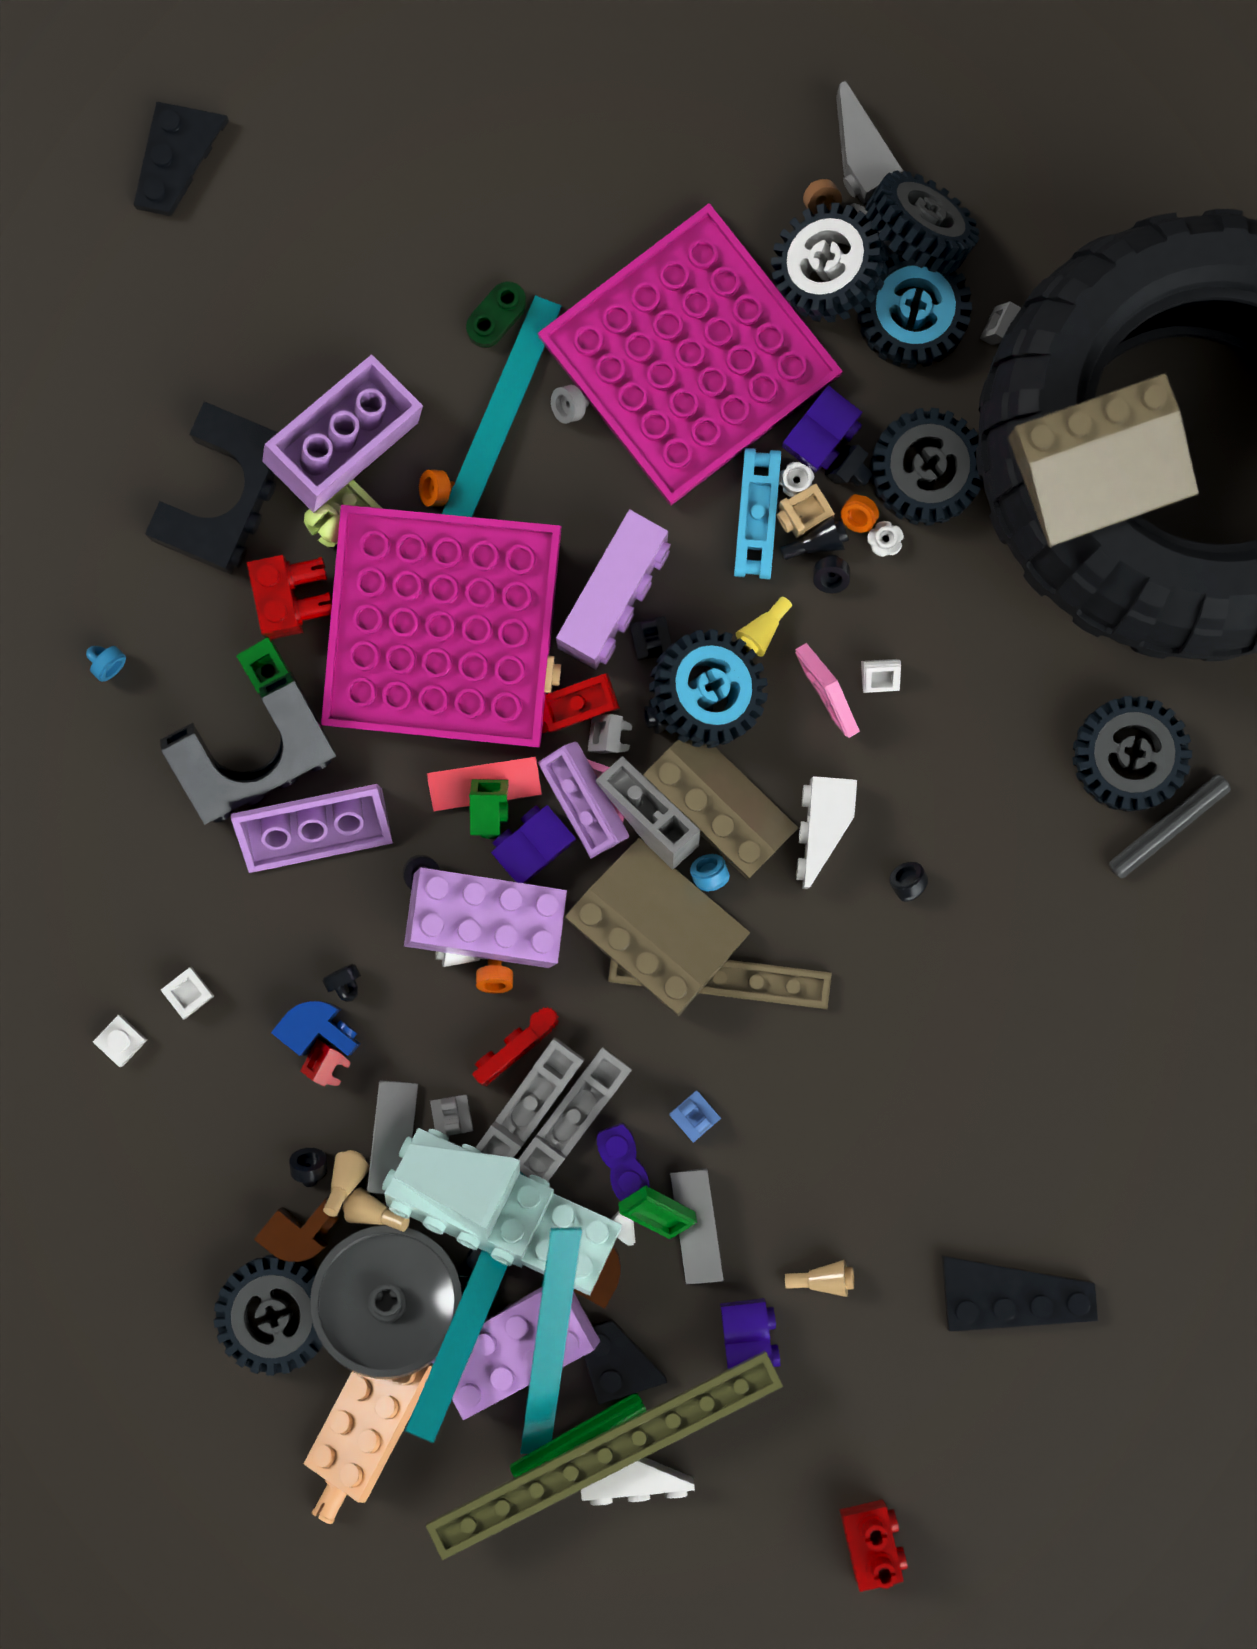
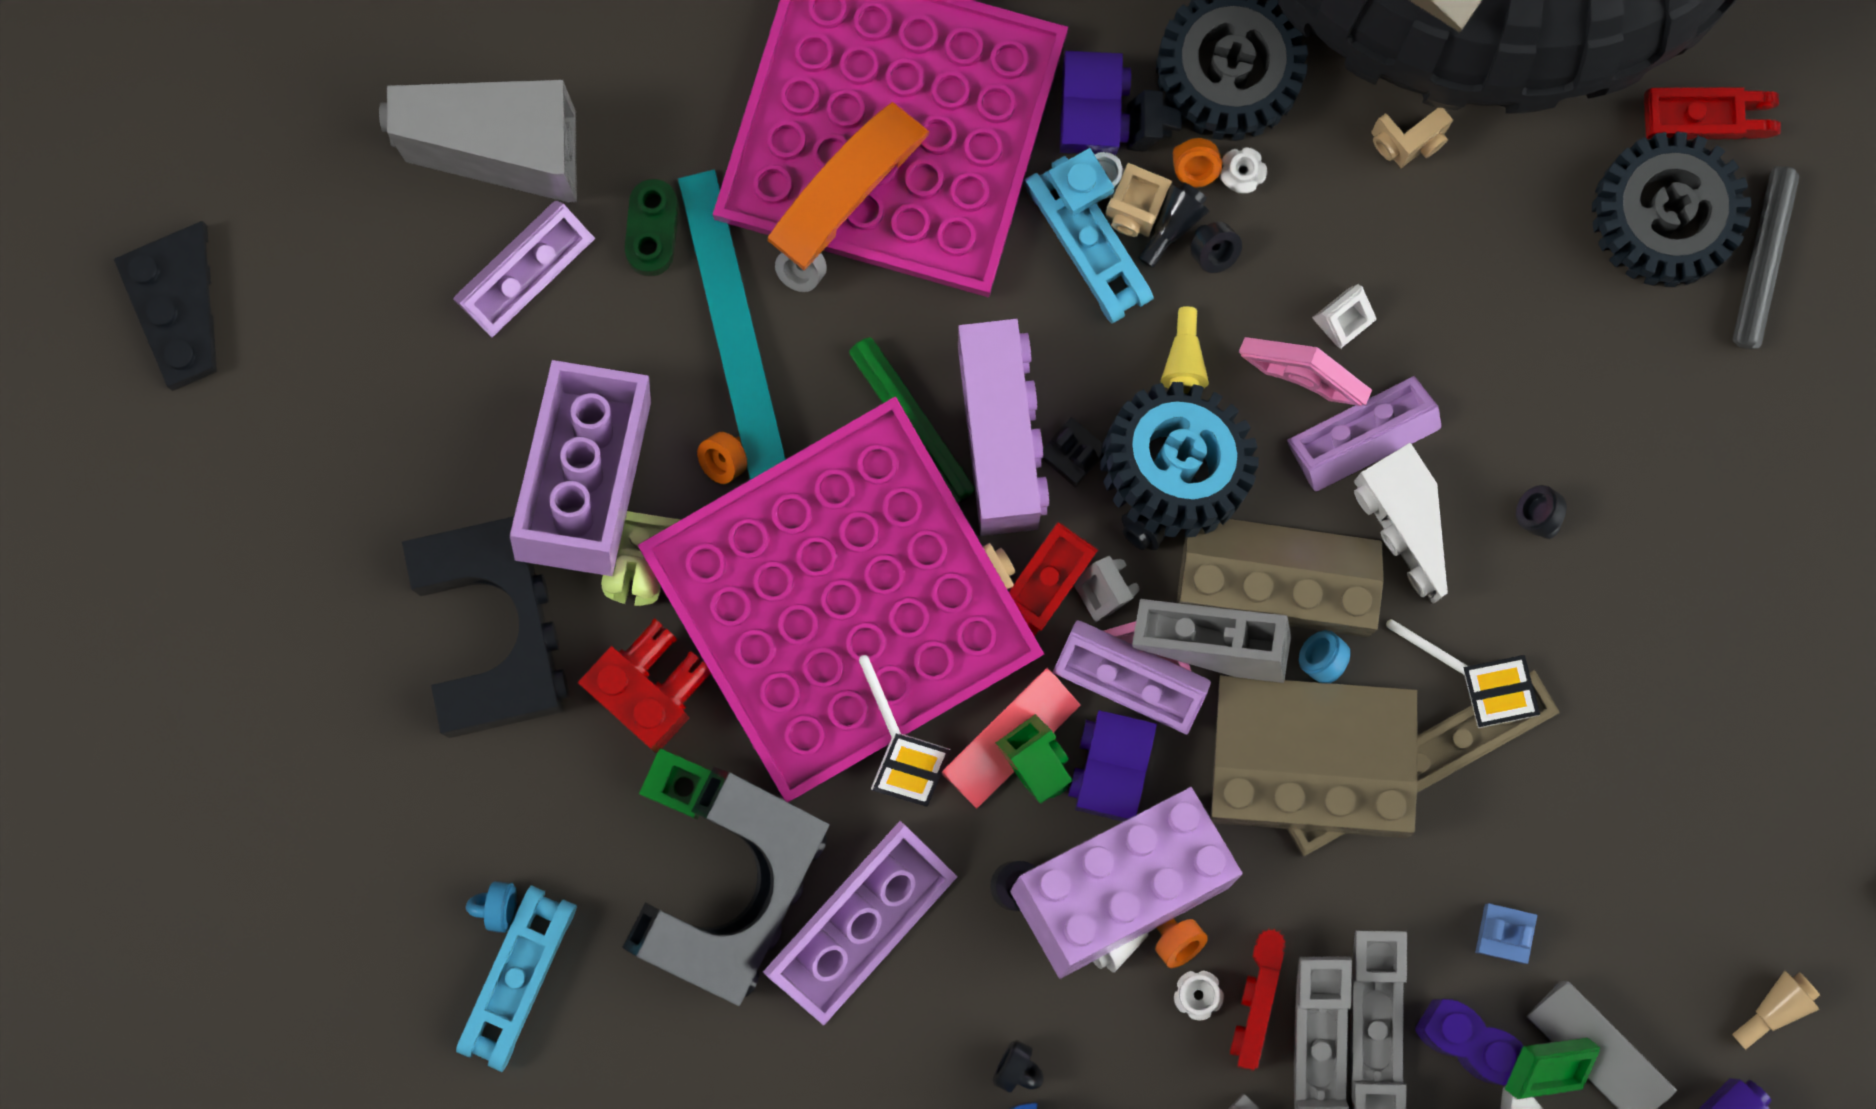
camera: 35 degrees left, 5 degrees down
(87, 713) = (515, 978): none -> medium azure plate
(400, 284) = (524, 268): none -> lavender slope
(410, 755) = (910, 764): none -> piece
(439, 185) = (488, 132): none -> light grey slope
(473, 1013) = (1211, 999): none -> white plate
(567, 564) = (888, 385): none -> green axle
(631, 371) = (845, 183): none -> orange slope
(777, 474) = (1081, 182): none -> medium azure plate
(799, 967) = (1497, 689): none -> piece
(838, 756) = (1365, 433): none -> lavender slope
(1010, 598) = (1423, 138): none -> tan bracket
(1203, 711) = (1709, 112): none -> red hinge

